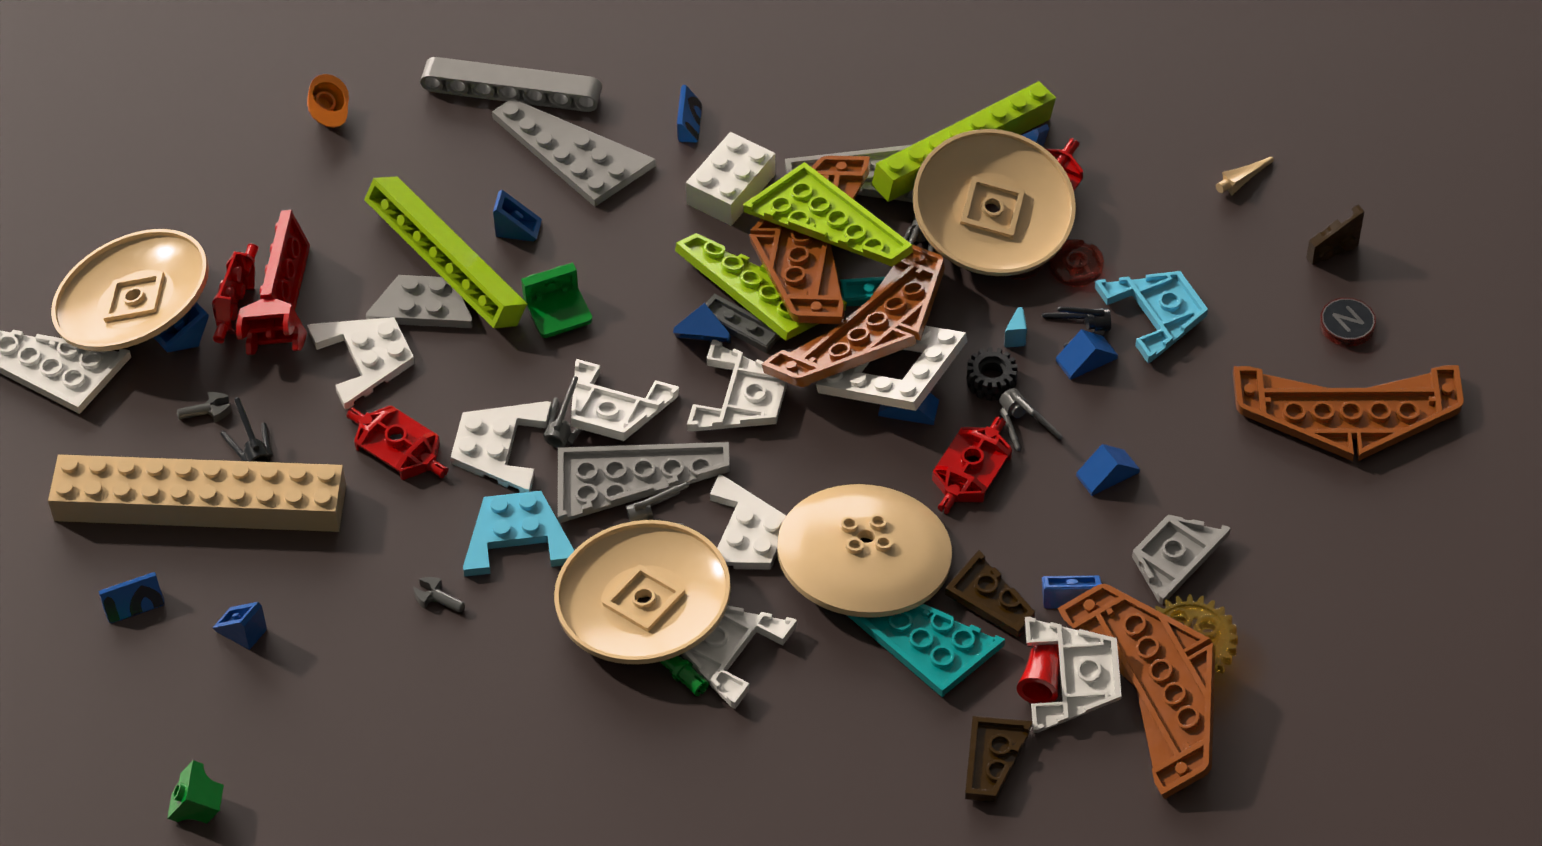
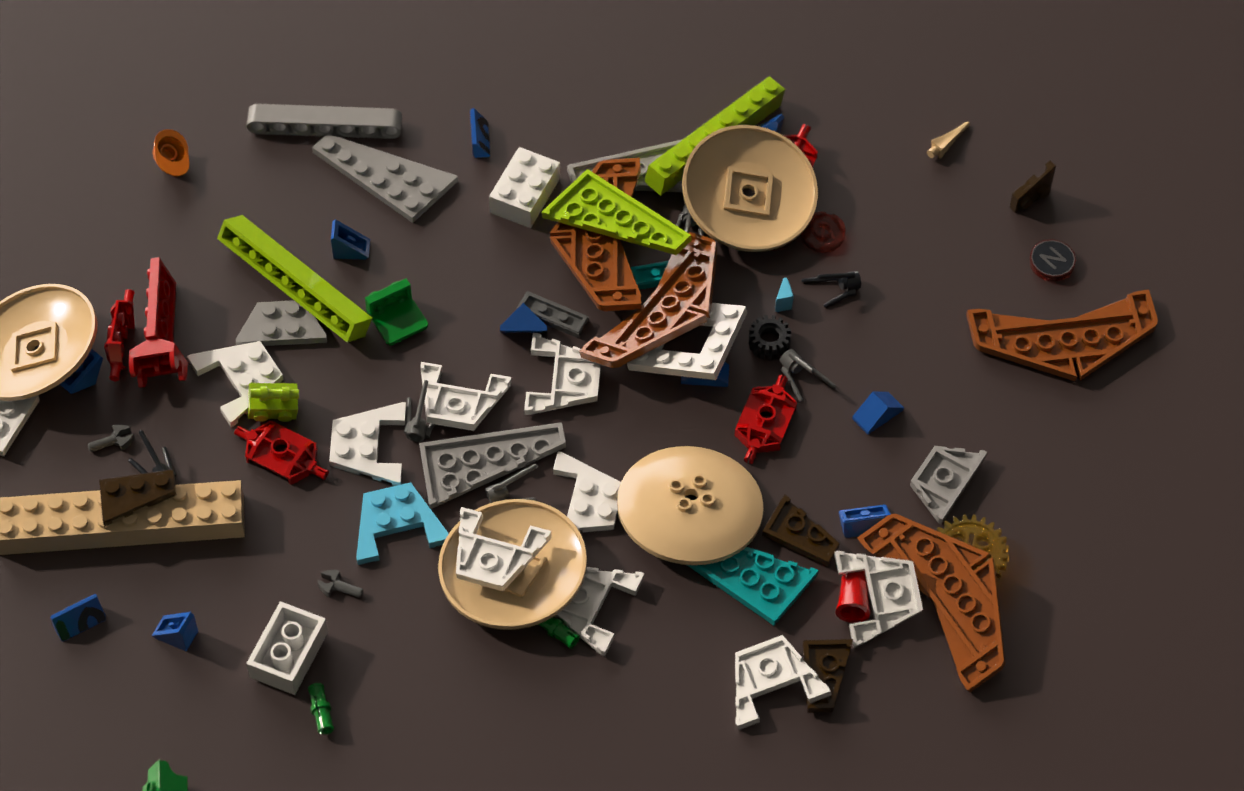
camera: 10 degrees left, 5 degrees up
(210, 464) = (129, 493): none -> dark brown wing
(364, 656) = (287, 648): none -> white brick
(392, 729) = (321, 708): none -> green pin
(395, 384) = (273, 401): none -> lime brick
(618, 584) = (490, 560): none -> white wing
(743, 282) = (550, 278): lime wing -> none
(923, 744) = (769, 668): none -> white wing
(1085, 354) = (843, 311): blue slope -> none
(1167, 303) = (902, 258): medium azure wing -> none

